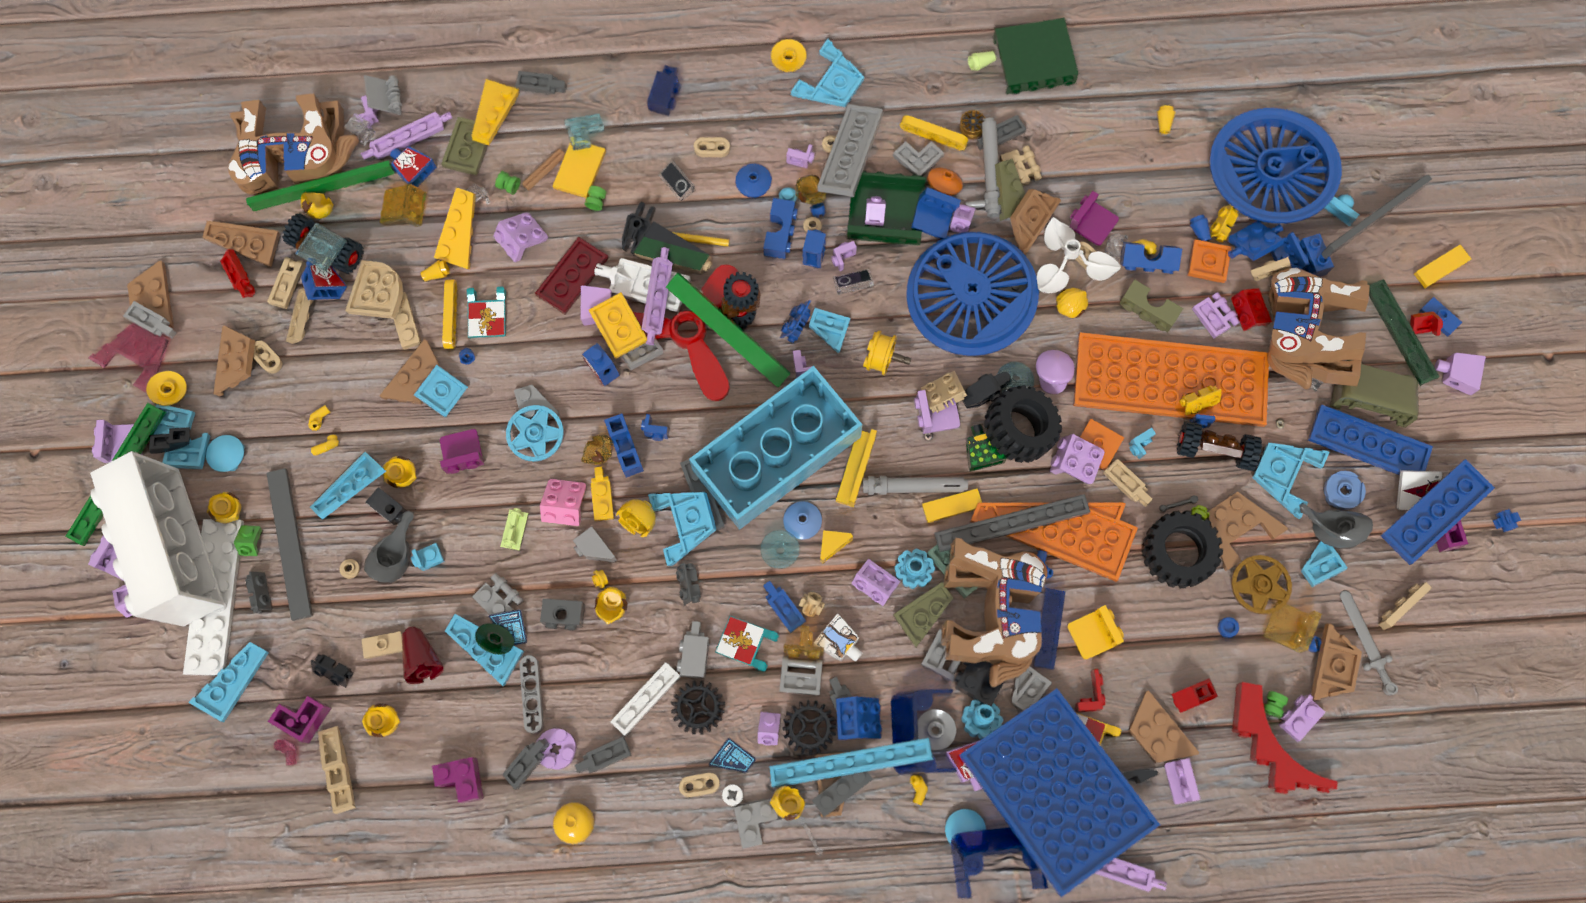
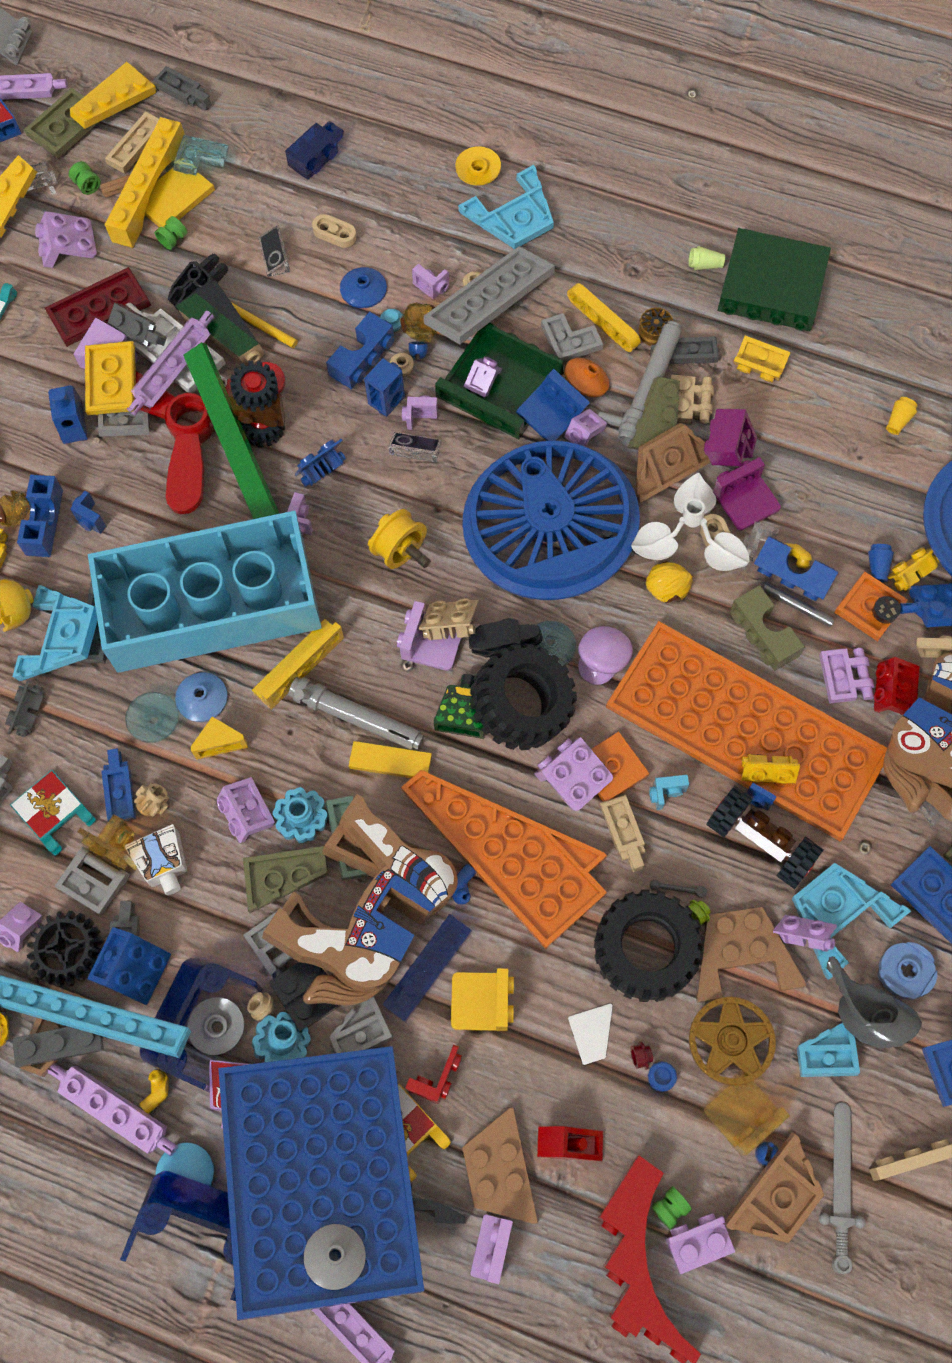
camera: 25 degrees right, 5 degrees down
(528, 139) = (132, 144): none -> tan plate
(555, 167) = (129, 210): none -> yellow arch
(614, 279) = (135, 326): none -> dark grey hinge
(830, 327) = (357, 487): medium azure wing -> none
(898, 813) = (112, 1109): none -> lavender plate
(956, 703) = (260, 1005): none -> tan plate
(1014, 522) = (453, 814): dark grey tile -> none
(1055, 117) = (762, 359): none -> yellow bracket
(1067, 185) = (730, 438): none -> magenta brick
(1091, 838) = (329, 1273): none -> light grey dish
(1162, 280) = (798, 605): none -> flat silver bar
(1170, 620) = (592, 1032): none -> white sticker
(1210, 620) = (641, 1055): none -> dark red plate
(1222, 260) = (886, 609): none -> black tile
(1267, 496) = (798, 930): none -> lavender hinge

